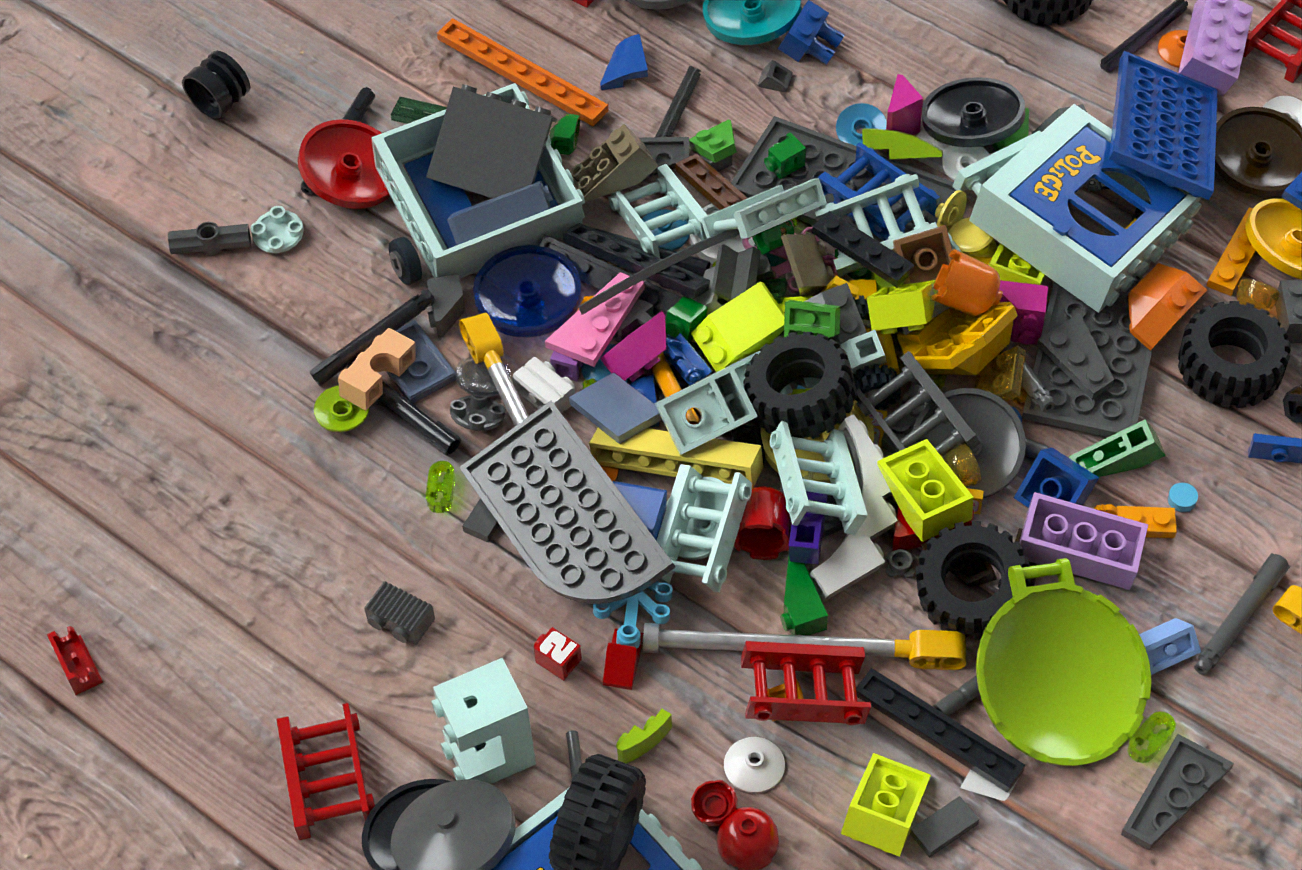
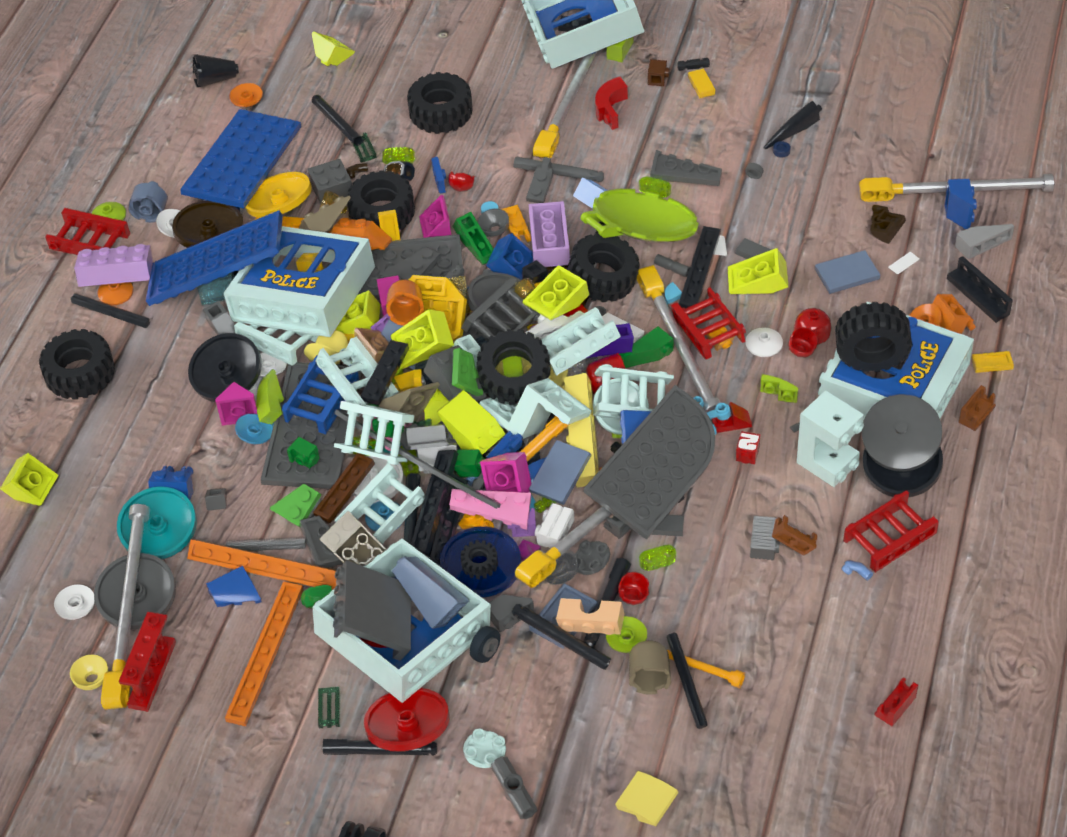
camera: 110 degrees left, 5 degrees down
(120, 357) = (646, 798): none -> light yellow slope
(216, 502) = (736, 677): none -> light orange piece
(241, 446) = (687, 681): none -> black axle
(276, 408) = (649, 667): none -> dark tan cylinder
(296, 706) = (860, 568): none -> medium blue arm
(374, 640) = (792, 537): none -> dark orange hinge
(400, 436) = (633, 588): none -> red hair
(515, 266) = (479, 569): none -> black tyre
(525, 351) = (527, 548): none -> magenta tile
(647, 91) = (261, 564): none -> orange plate
(905, 674) = (672, 293): none -> medium azure tile
(1001, 498) = (535, 272): none -> black brick
(1141, 476) = (493, 218): none -> dark grey piece
(1170, 347) = (389, 224): none -> yellow tile
(1177, 421) = (435, 219): none -> dark pink slope
(1204, 262) = (326, 217): none -> dark tan slope
(1214, 576) = (540, 182): none -> dark grey hinge
(1254, 470) = (460, 181): none -> red hair

